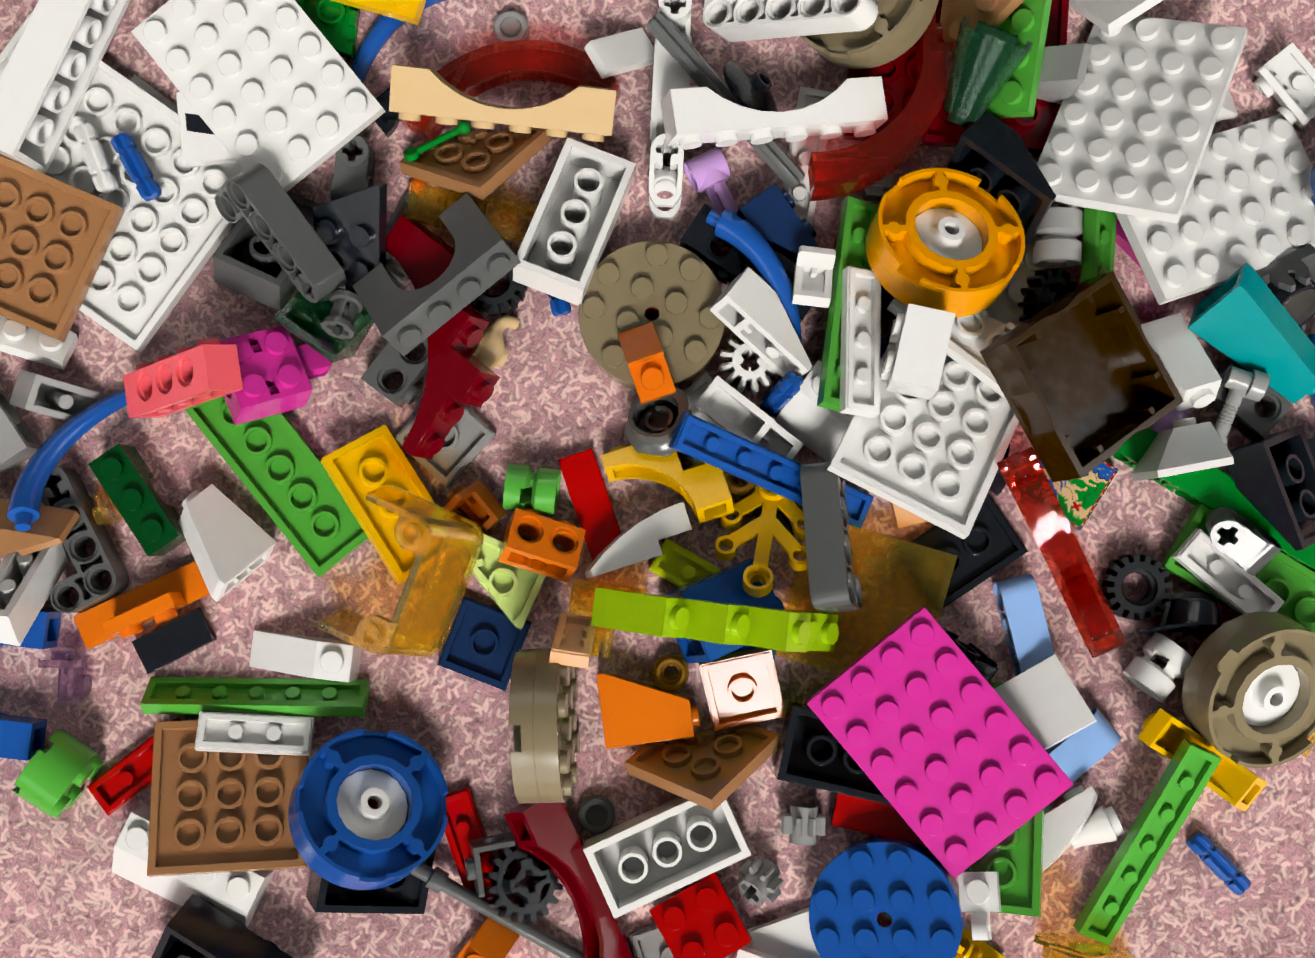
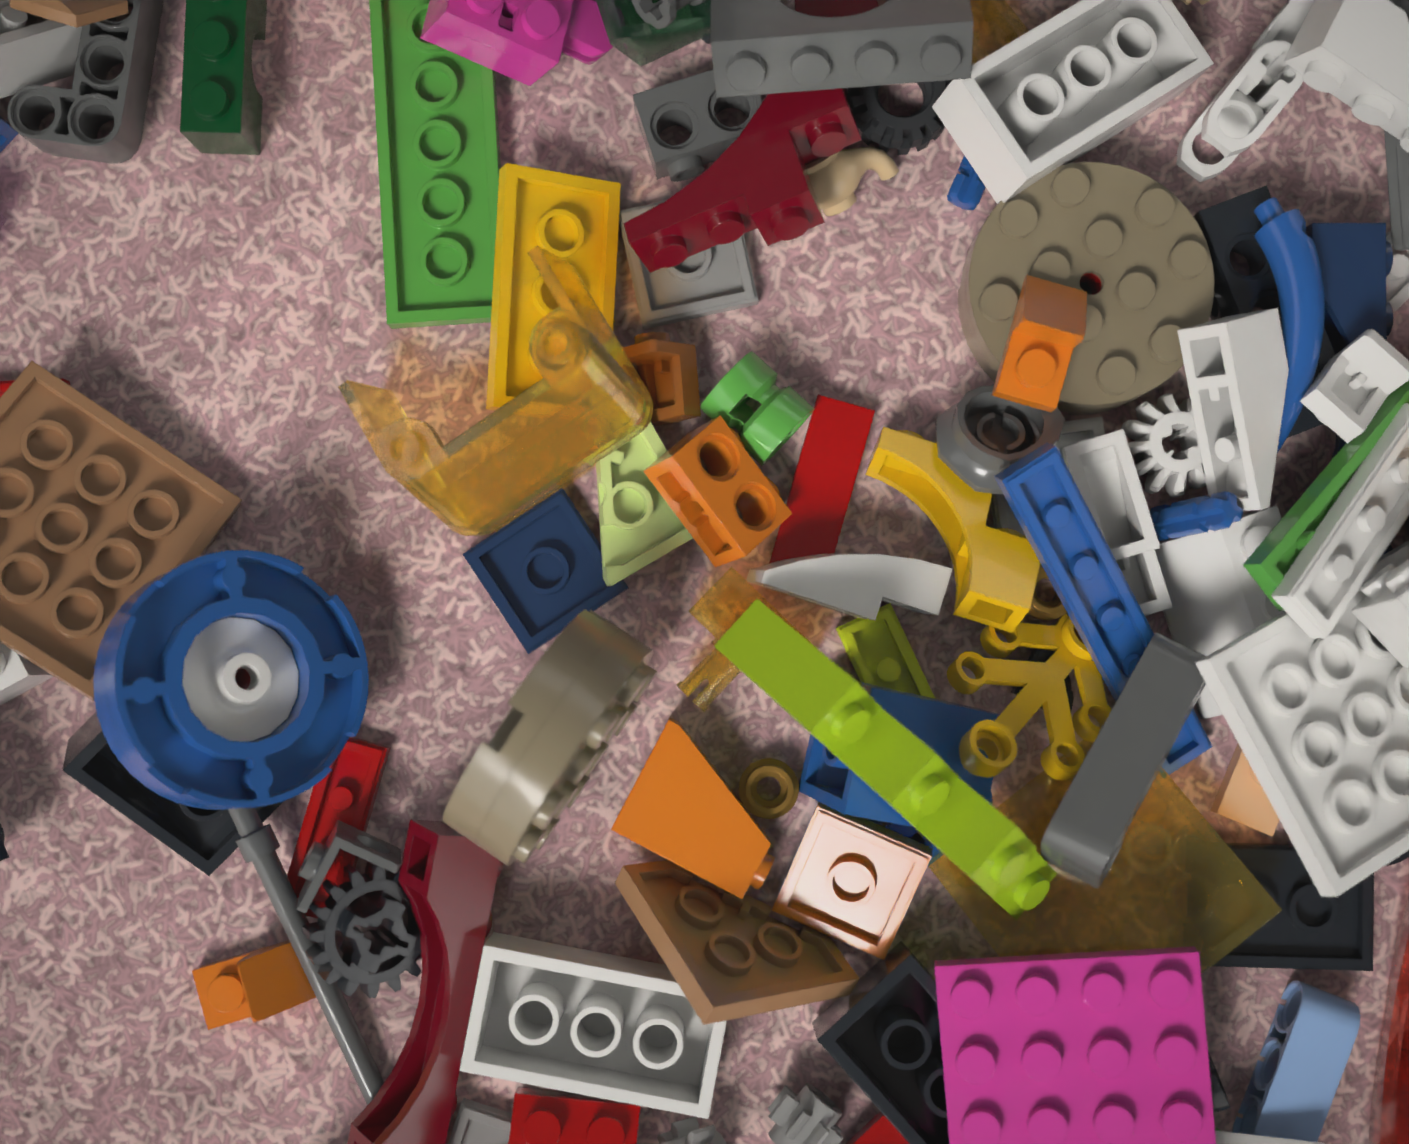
camera: 35 degrees right, 0 degrees up
(106, 511) = (166, 37): clear yellow tile -> none
(141, 605) = (137, 199): orange bracket -> none
(174, 640) = (137, 275): black tile -> none
(222, 540) = (295, 184): white slope -> none
(254, 733) = (153, 471): white tile -> none
(256, 696) = (192, 425): bright green plate -> none
(305, 656) = (296, 419): white slope -> none
(573, 641) = (674, 650): light nougat plate -> none
(596, 814) = (534, 908): dark grey tile -> none
(708, 174) = (1293, 153): lavender axle -> none

